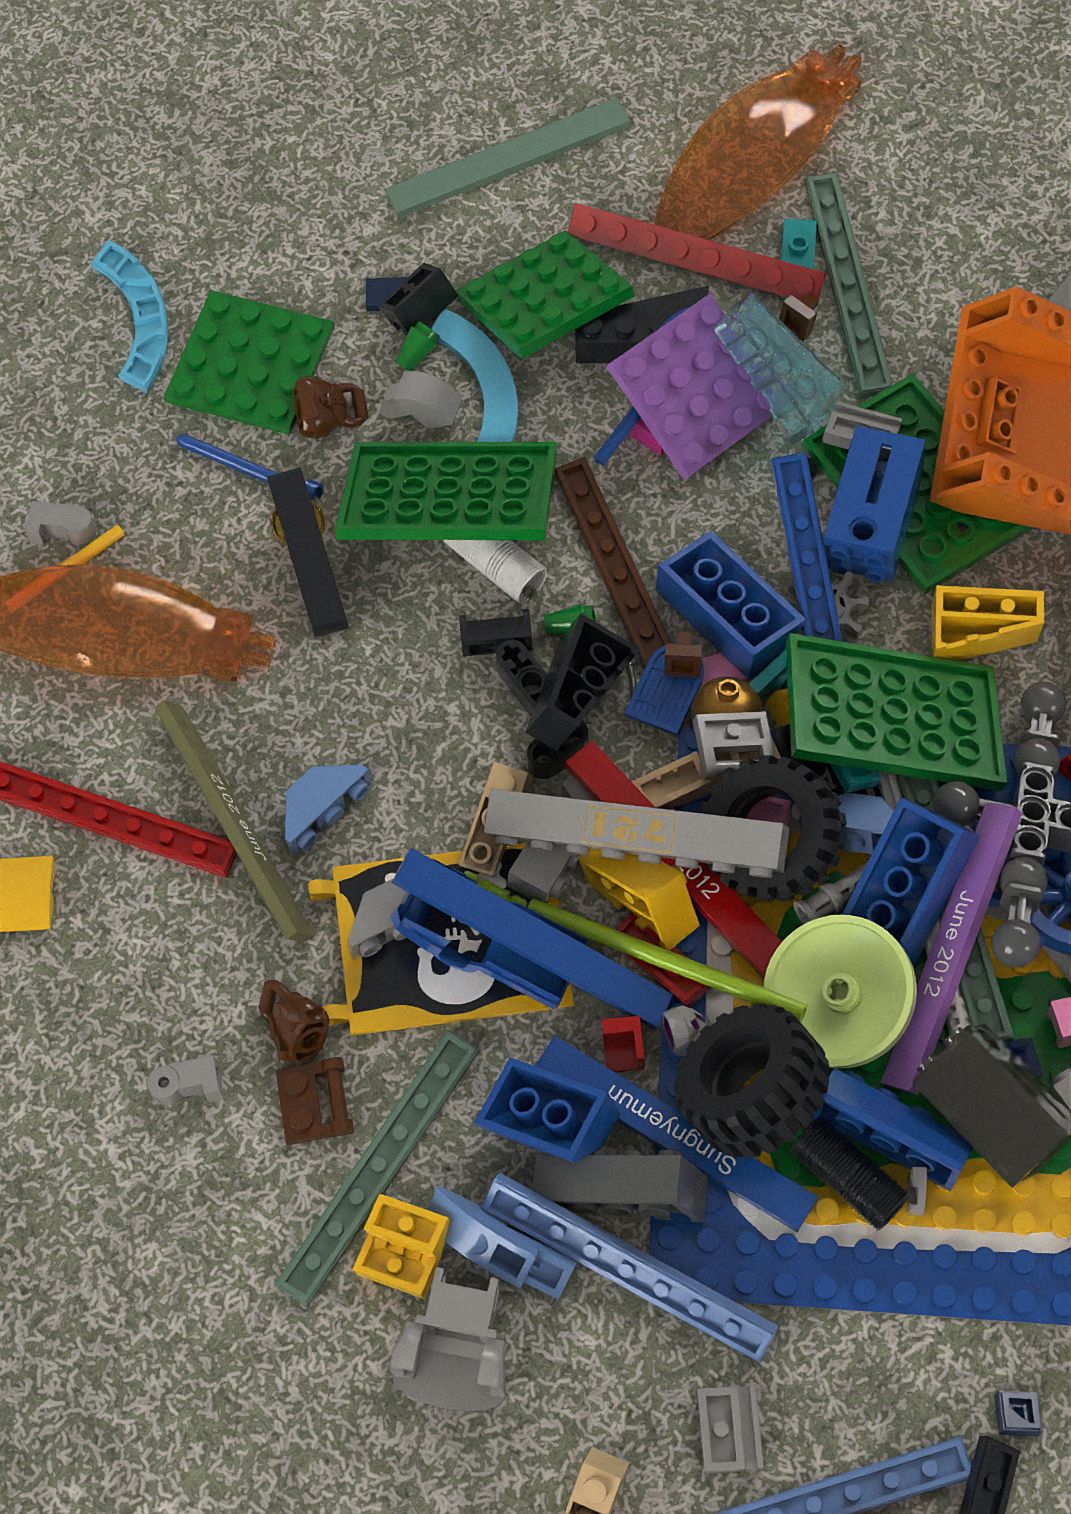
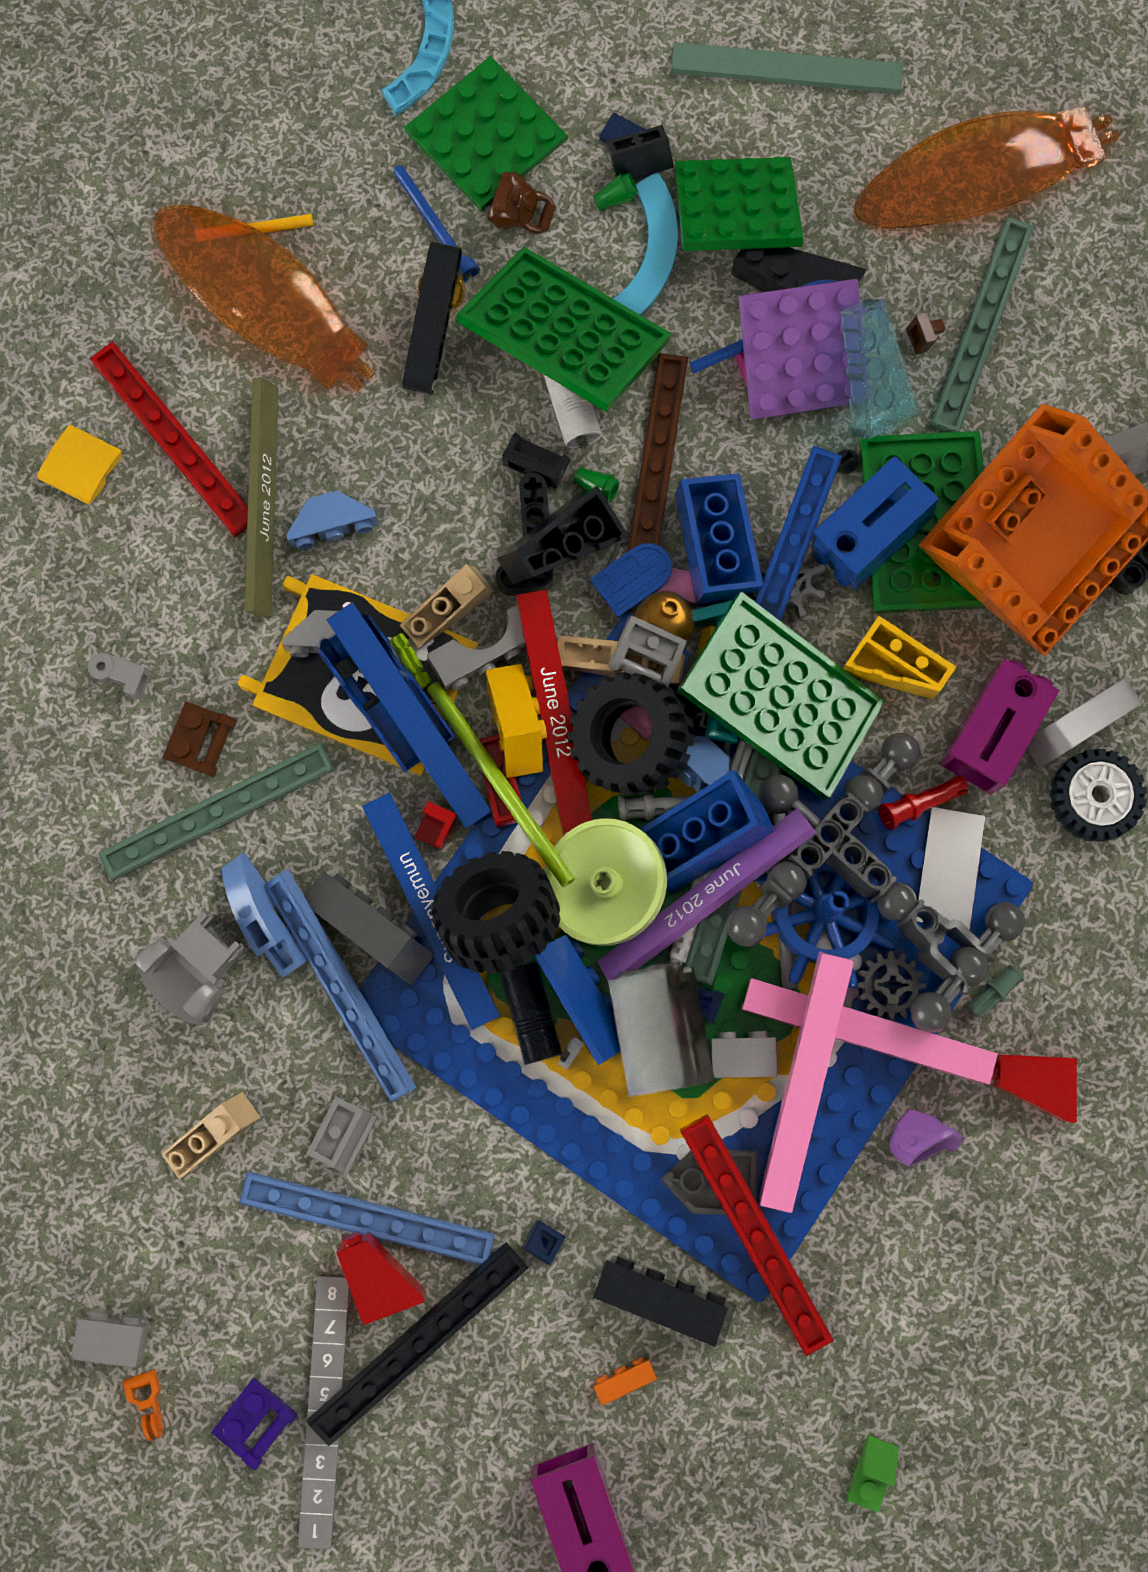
camera: 25 degrees right, 15 degrees up
(59, 521) = (269, 187): light grey leg -> none
(293, 1022) = (216, 676): reddish brown piece -> none
(402, 1246) = (196, 878): yellow slope -> none
(423, 397) = (593, 239): light grey brick -> none
(548, 1111) = (345, 848): blue slope -> none
(637, 831) = (529, 682): light grey brick -> none
(682, 1027) = (481, 840): light grey rock -> none
(683, 658) = (655, 562): reddish brown tile -> none
(695, 253) = (878, 234): red plate -> none
(799, 242) = (961, 274): teal plate -> none
(845, 419) = (910, 451): light grey plate -> none

